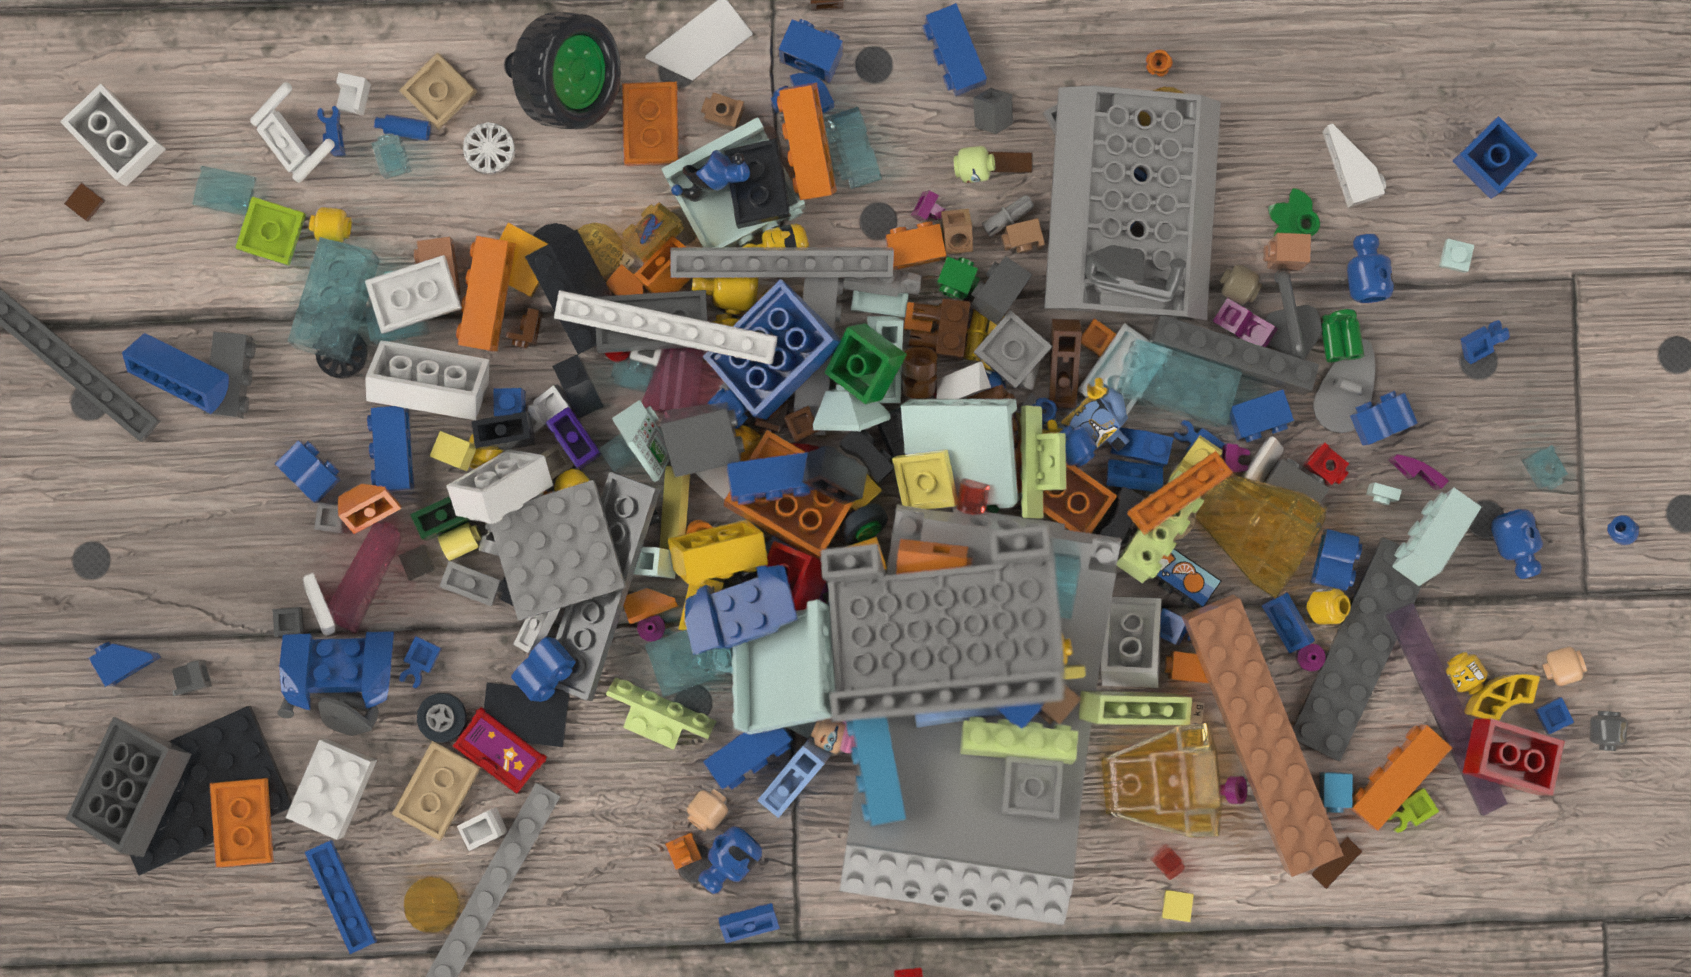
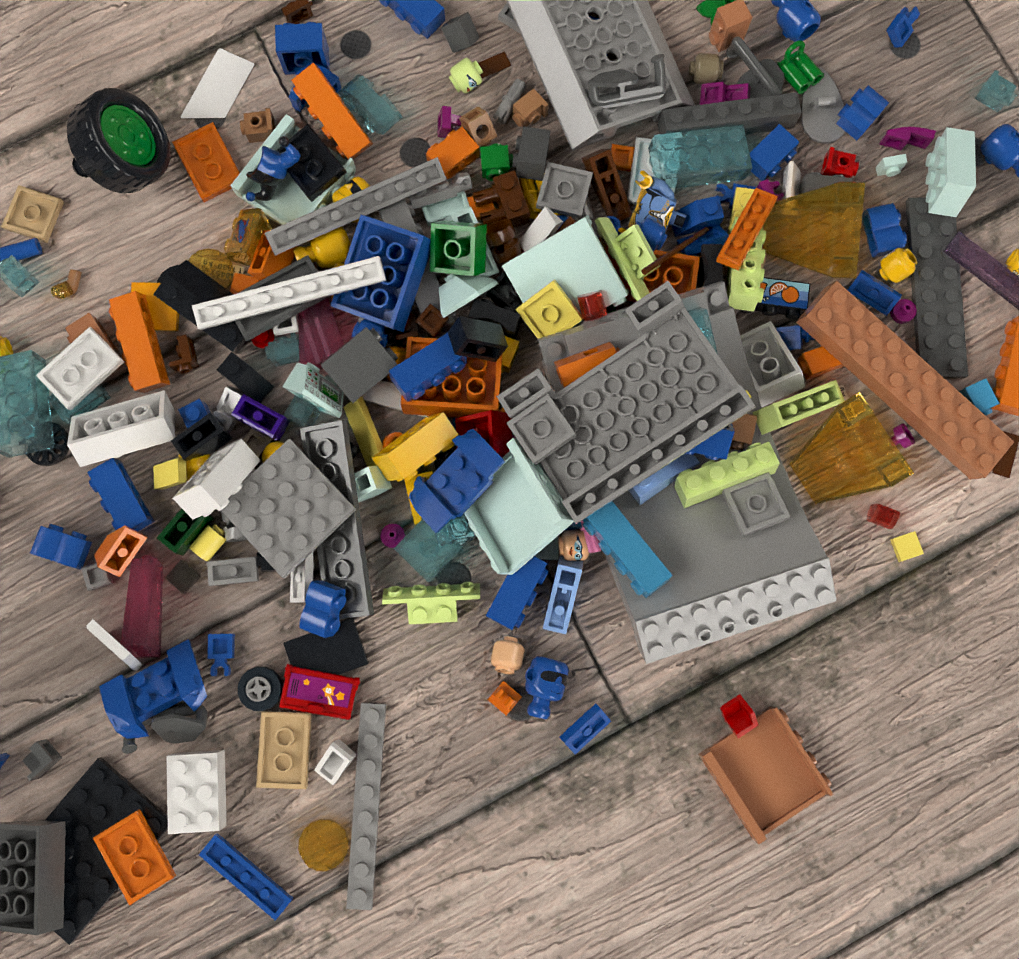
camera: 30 degrees left, 5 degrees down
(288, 621) = (99, 673): dark grey tile -> none
(438, 193) = (67, 287): none -> arm
(489, 148) = (91, 237): white wheel -> none
(647, 604) = (380, 518): orange tile -> none
(849, 606) = (541, 429): none -> light grey plate
(863, 524) = (516, 369): black wheel -> none
(1092, 478) = (650, 267): none -> reddish brown axle

